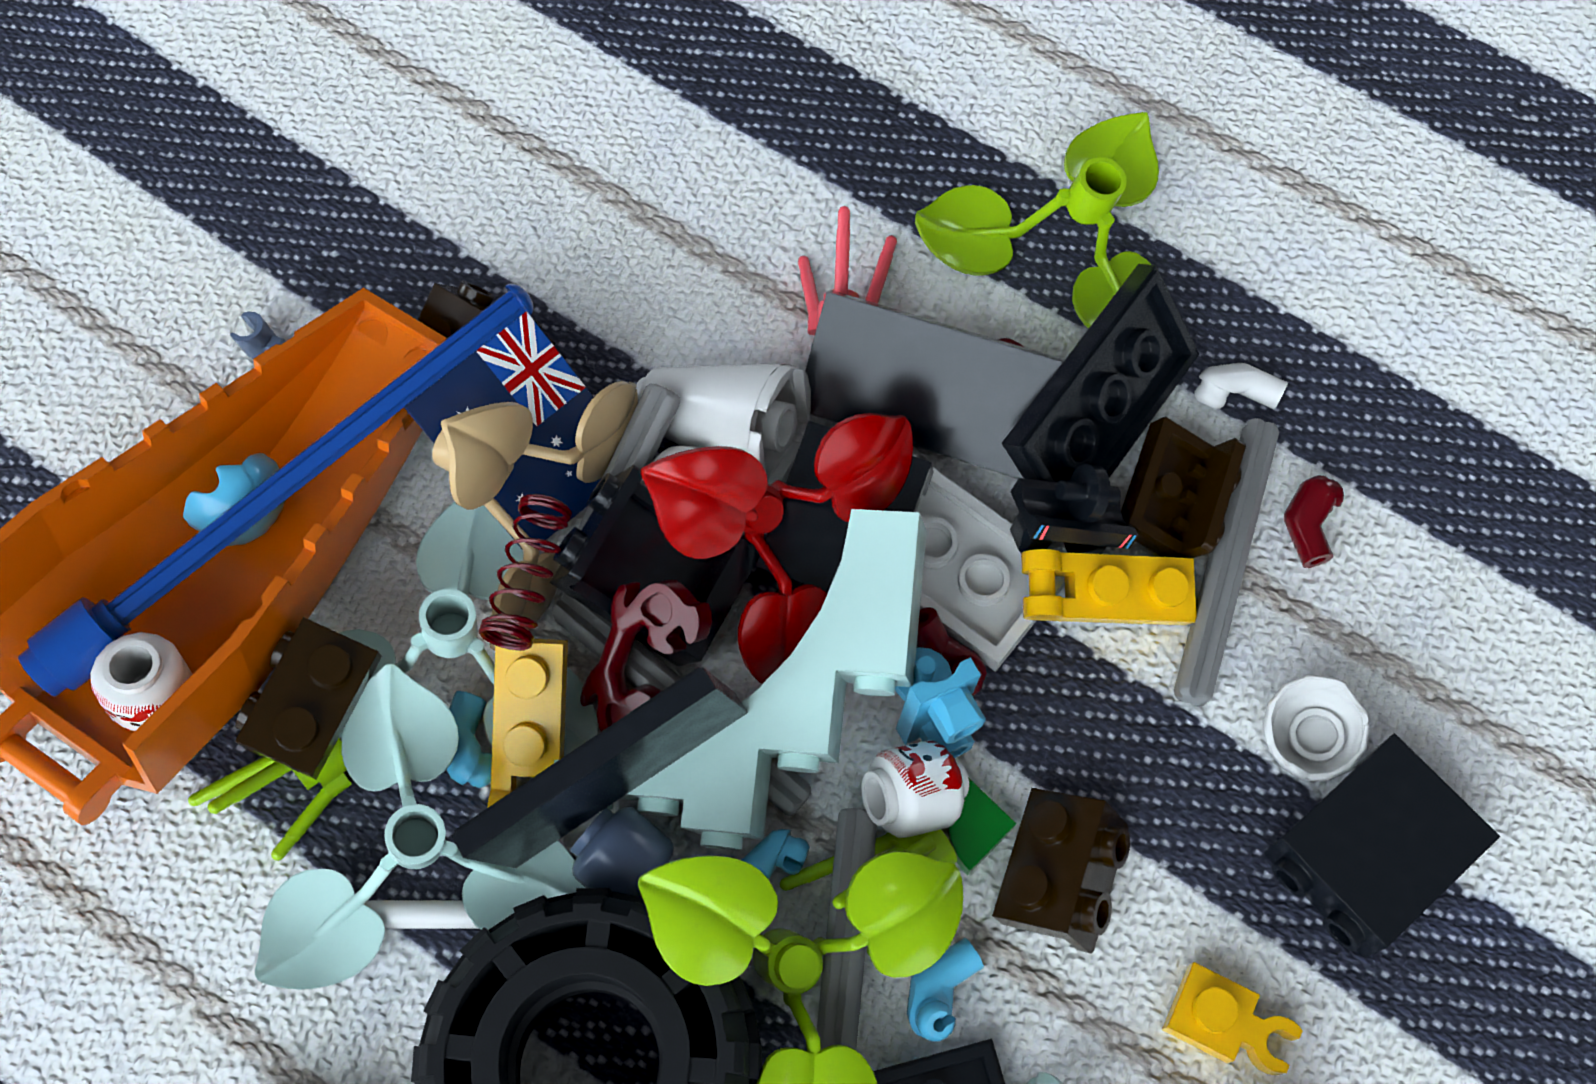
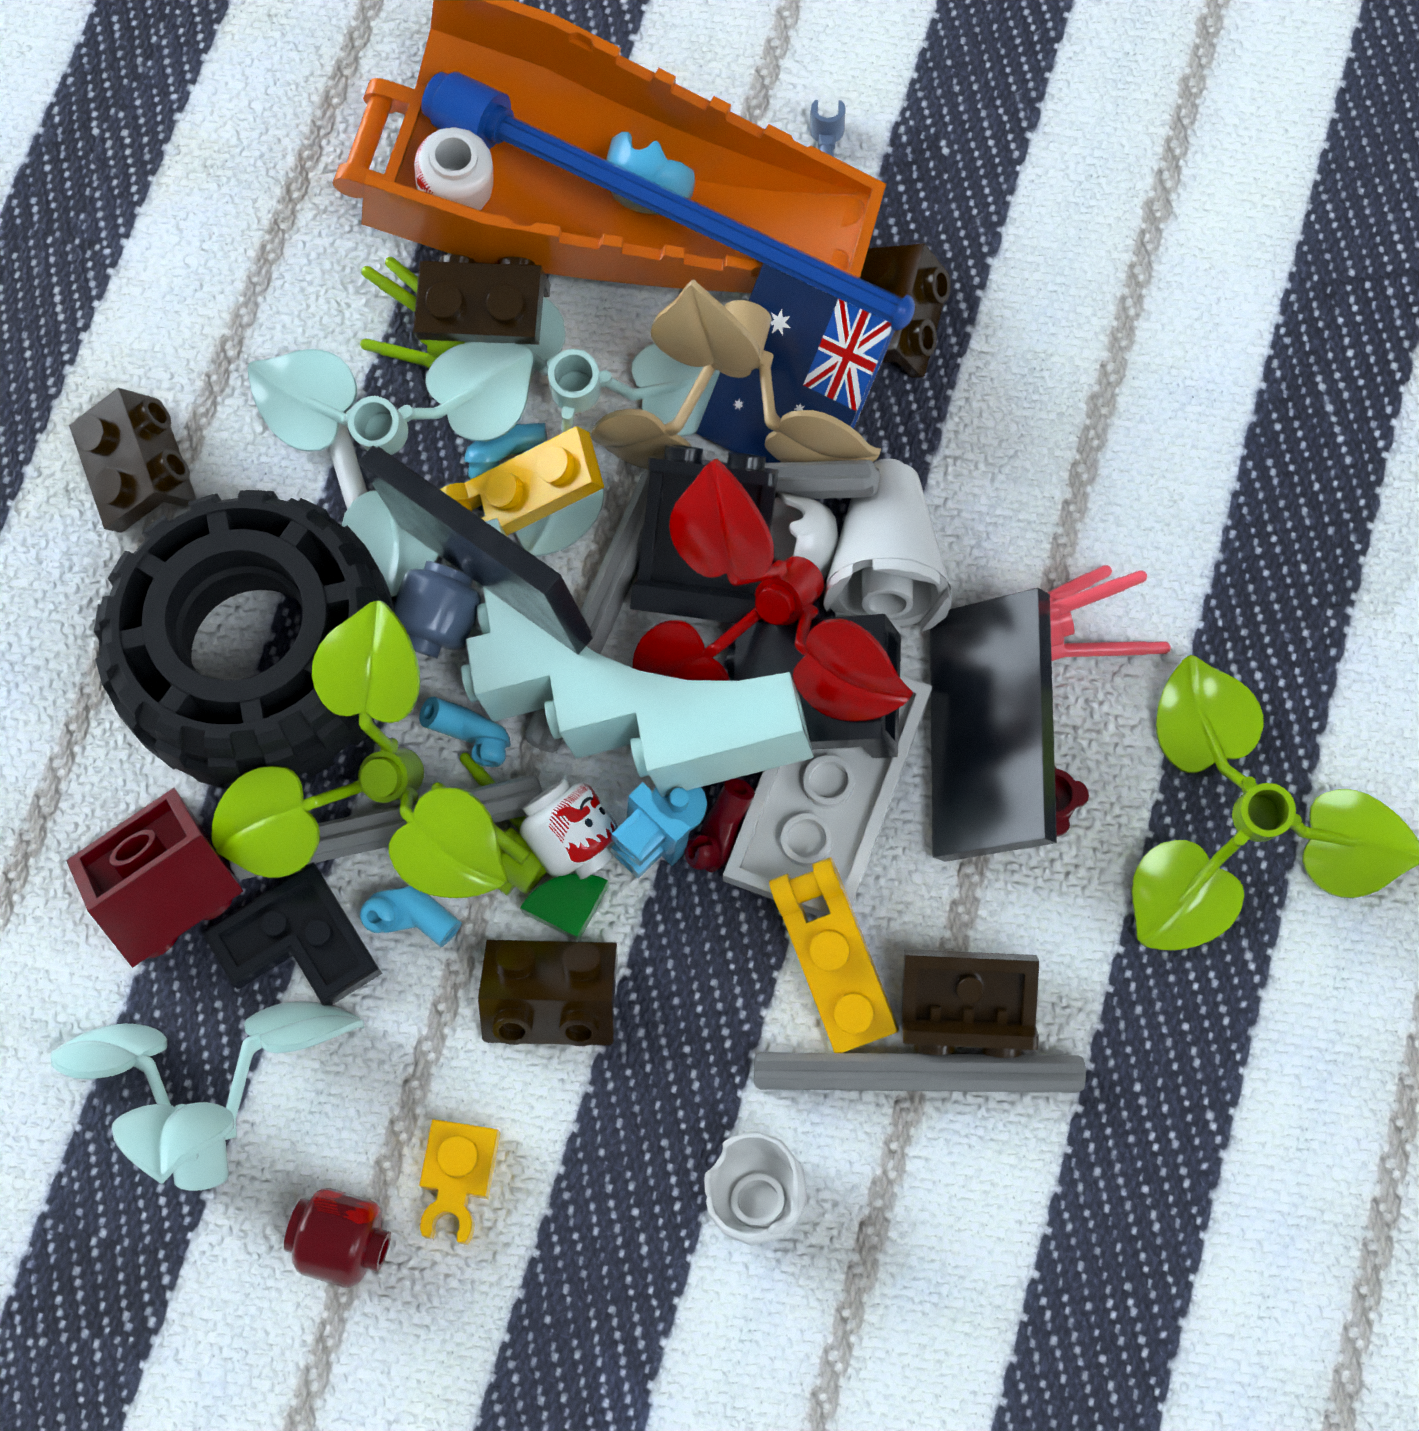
camera: 75 degrees right, 5 degrees up
(488, 628) = (700, 430): dark red piece -> none
(664, 611) = (643, 568): dark red helmet -> none
(1075, 512) = (889, 894): black hips -> none
(1106, 384) = (1040, 894): black tile -> none
(1241, 379) = (1129, 1034): white arm -> none
(1306, 515) = (996, 1141): dark red arm -> none
(1380, 848) = (657, 1275): black panel -> none

